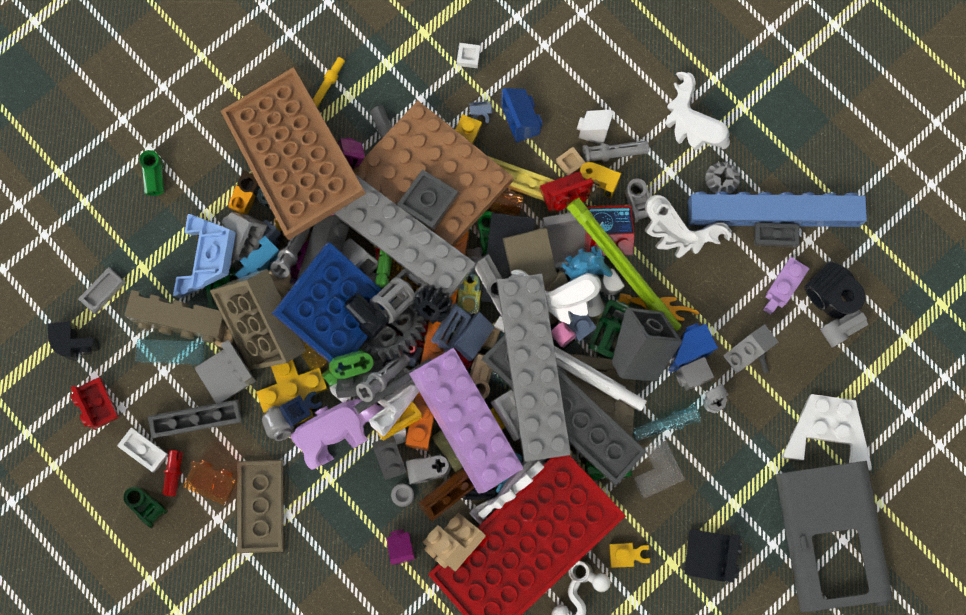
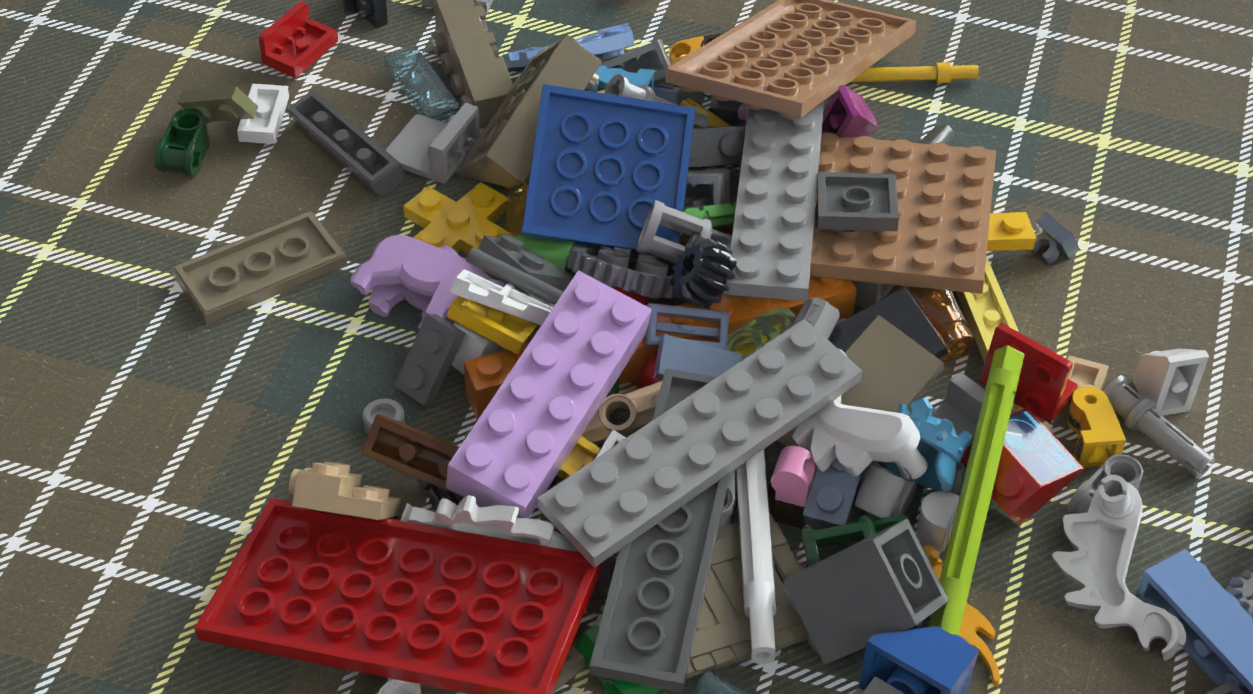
camera: 60 degrees right, 30 degrees down
(124, 481) = (220, 103): none -> olive plate
(172, 473) = (249, 154): red axle -> none
(210, 483) = (260, 194): clear orange bracket -> none
(276, 424) = (396, 217): light grey head -> none
(297, 409) = (431, 225): dark blue plate -> none
(349, 359) = (543, 224): bright green beam -> none
(370, 320) = (623, 219): black piece -> none
(378, 380) = (530, 255): light grey pin -> none
(400, 547) = (289, 439): magenta slope -> none
(423, 470) = (442, 416): light grey piece -> none
(468, 55) = (1120, 192): white plate -> none
(520, 114) = (1093, 276): blue slope -> none

